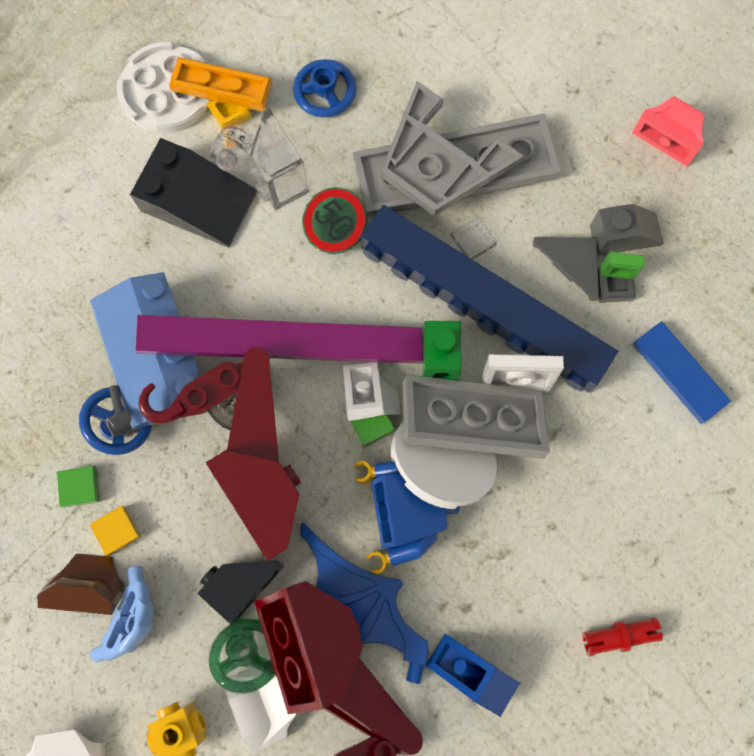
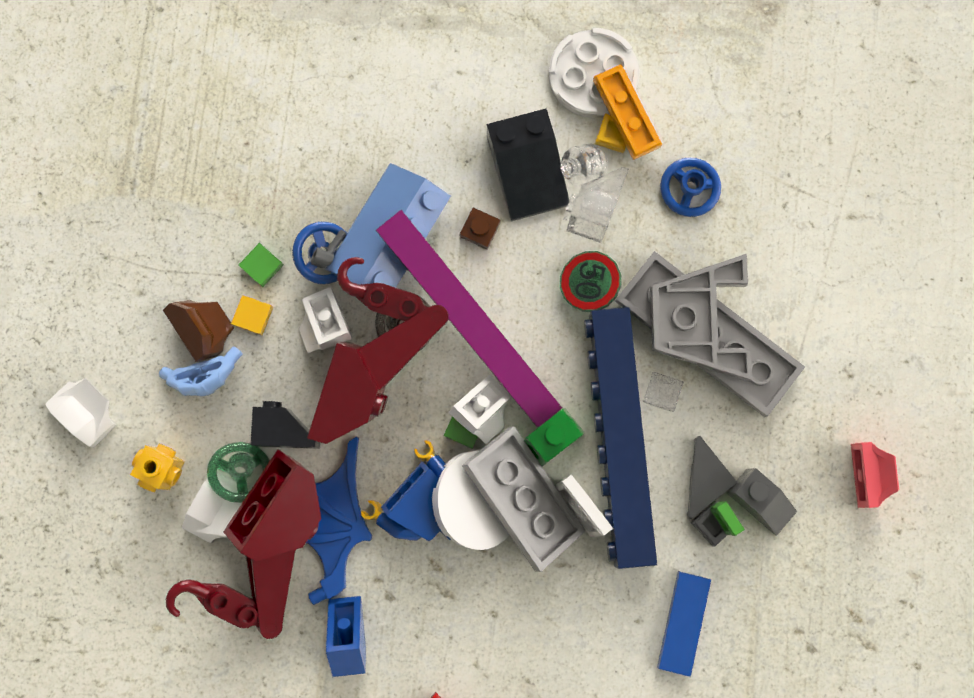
camera: 50 degrees right, 5 degrees up
(176, 470) = (323, 321): none -> white slope
(212, 275) = (480, 228): none -> reddish brown plate

